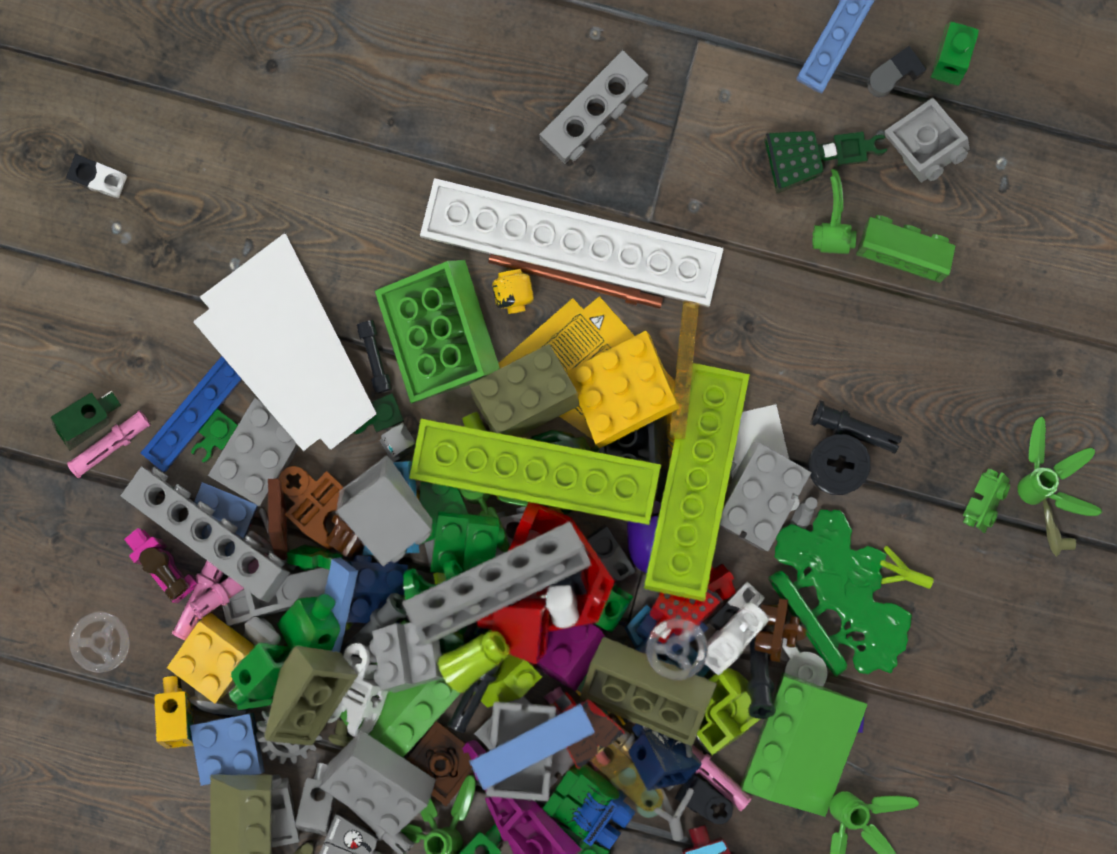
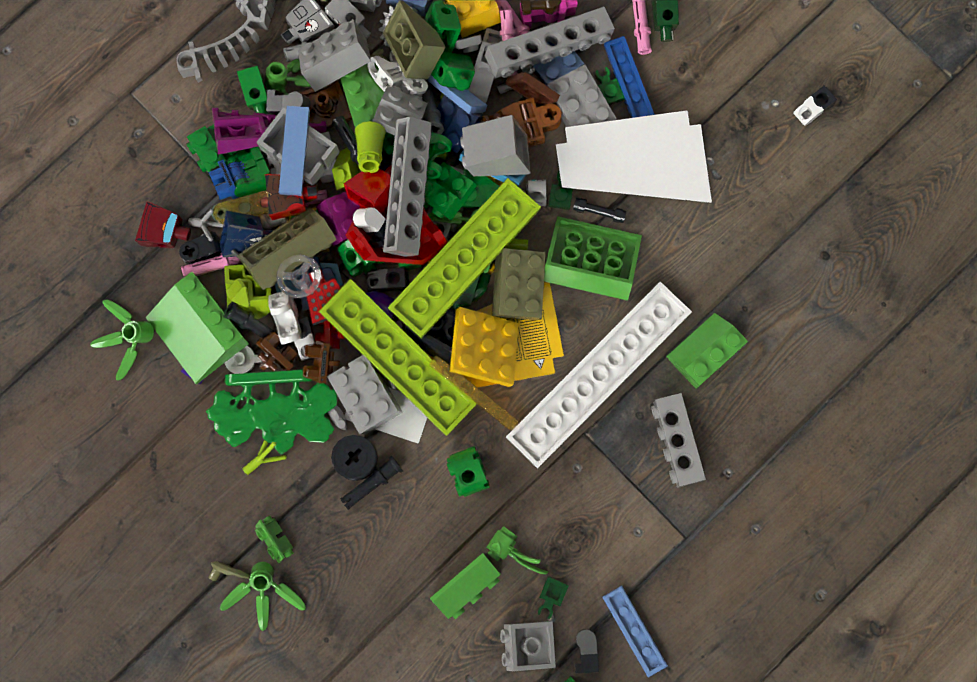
camera: 125 degrees right, 5 degrees down
(310, 557) = (497, 99): green plate -> none
(467, 797) = (277, 100): none -> leg
(468, 135) = (706, 349): none -> bright green slope
(513, 291) = (589, 318): yellow head -> none
(629, 294) = (543, 391): copper bar -> none
(736, 713) = (238, 293): none -> lime slope
(754, 567) = (323, 361): none -> reddish brown hips
(777, 322) = (468, 483): none -> green brick
(796, 158) = (568, 552): dark green torso -> none

